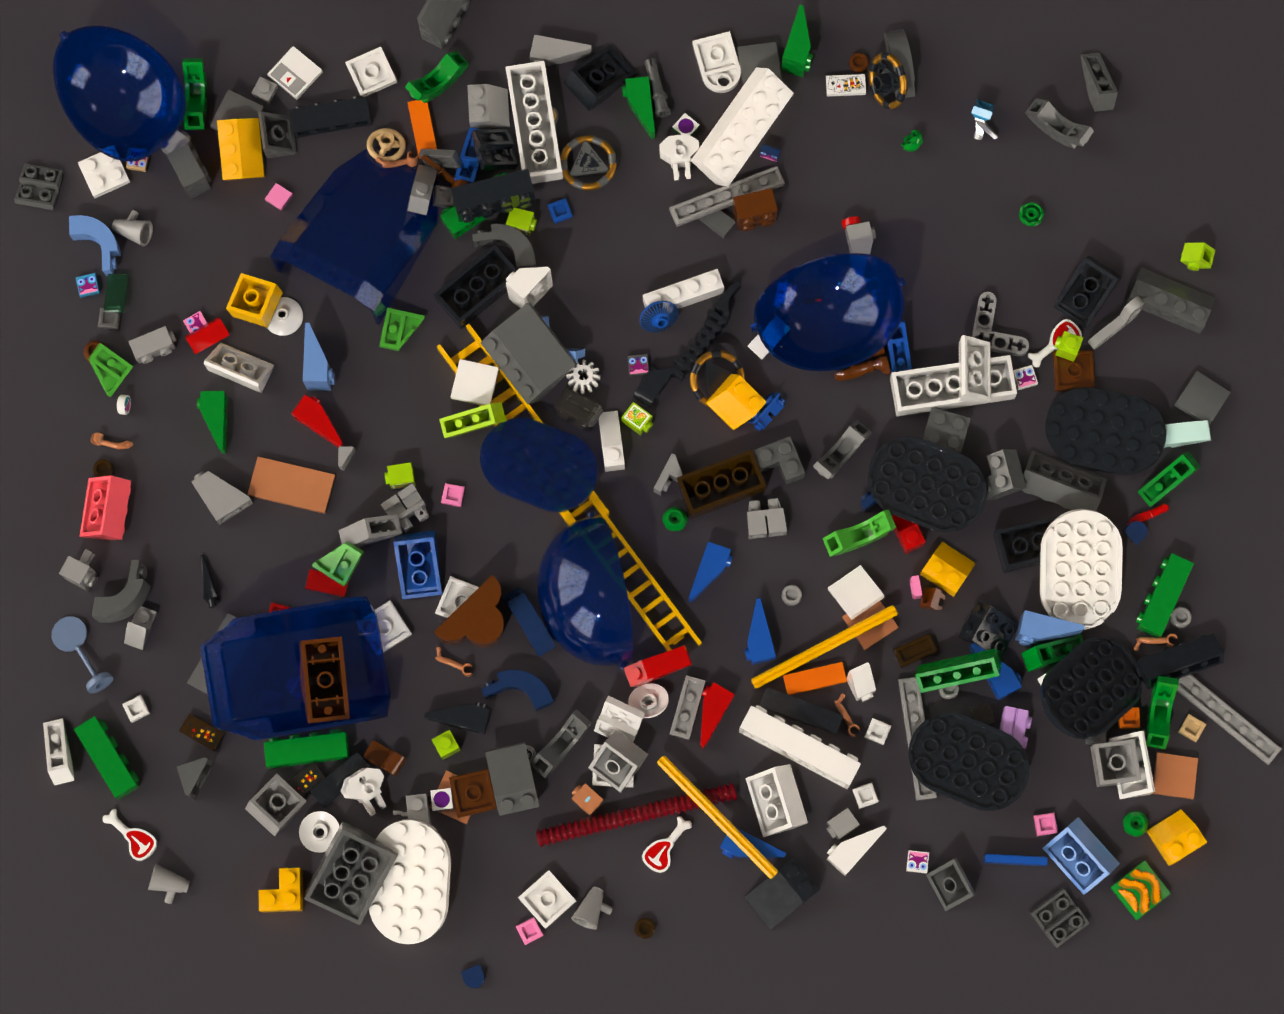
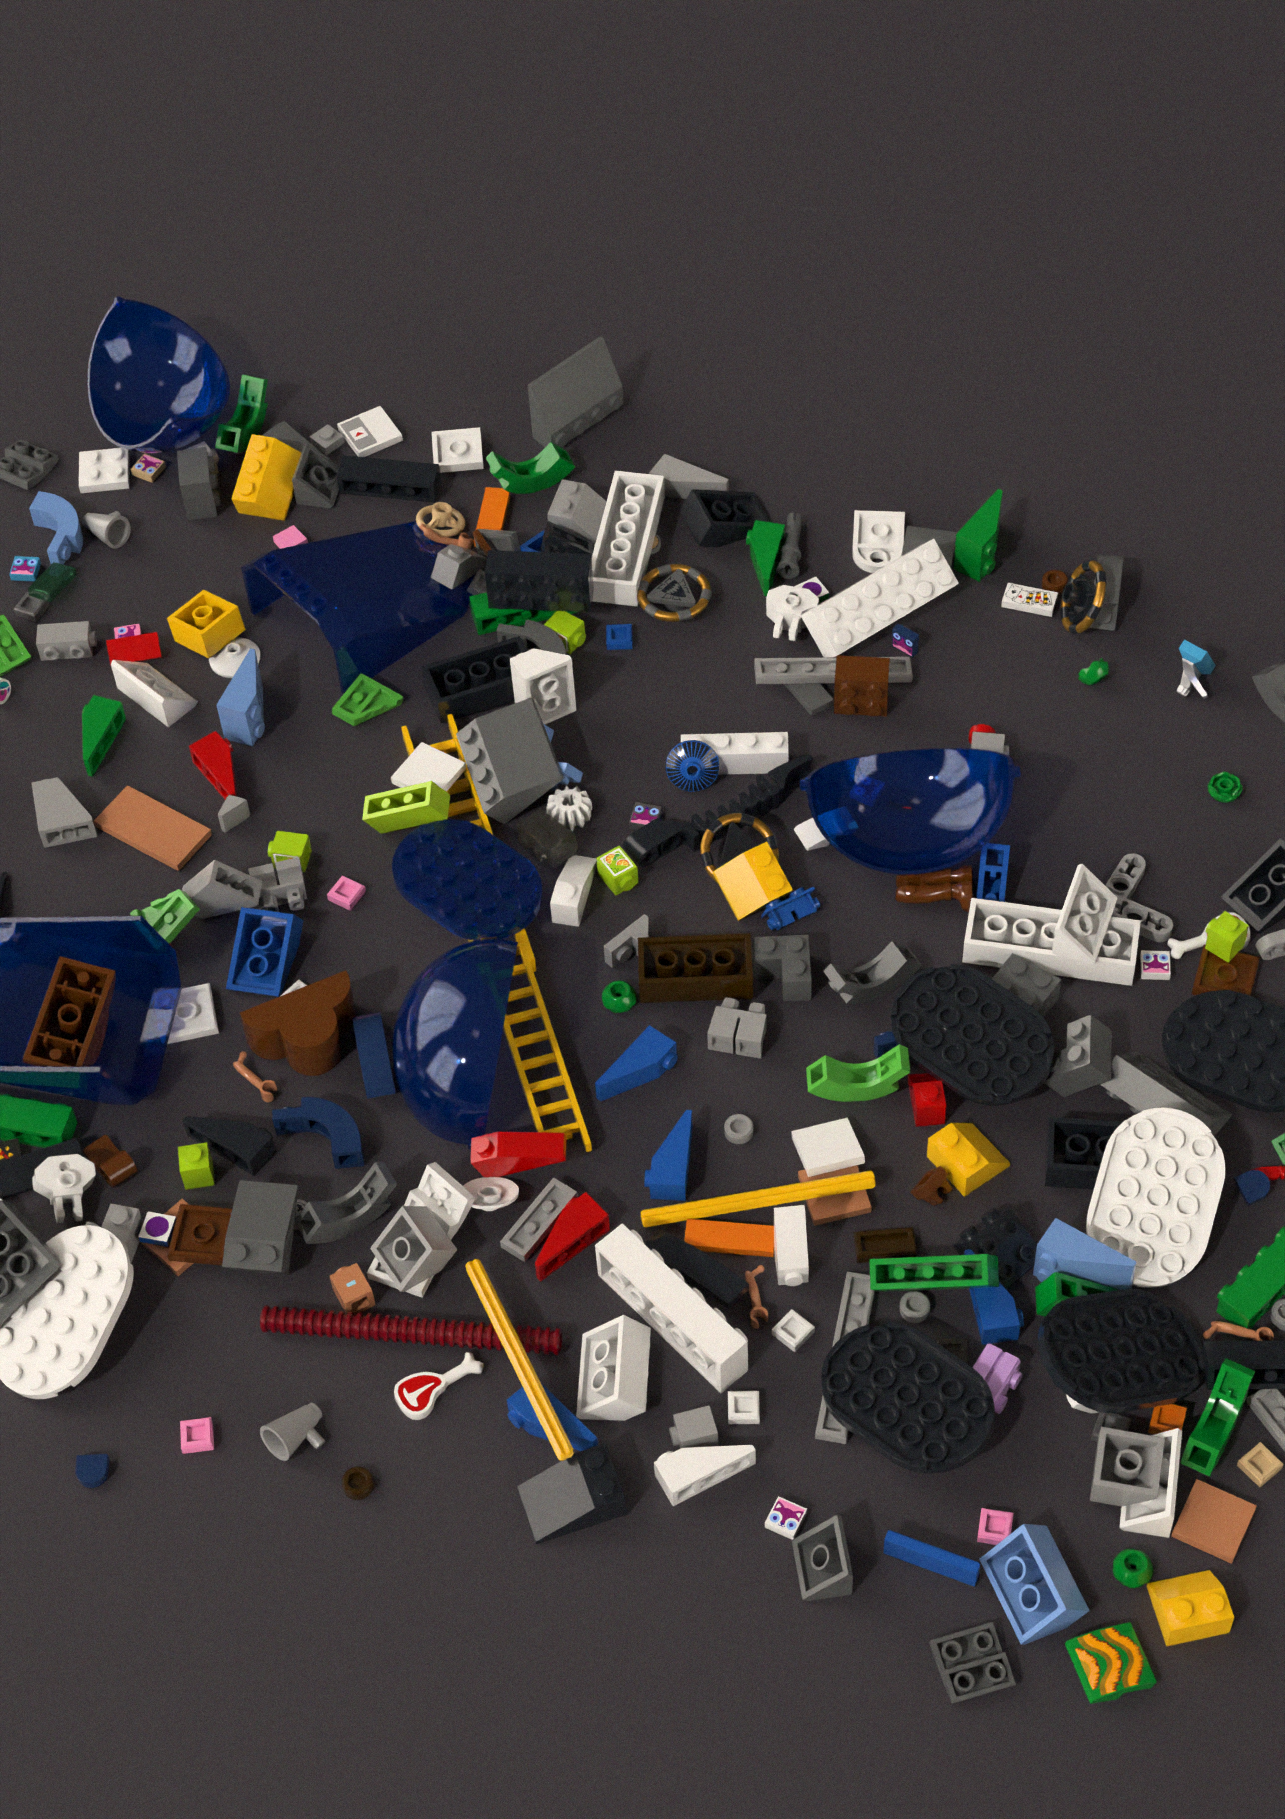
camera: 20 degrees right, 25 degrees down
(547, 899) = (239, 1400): white plate -> none
(915, 587) = (913, 1164): bright pink tile -> none

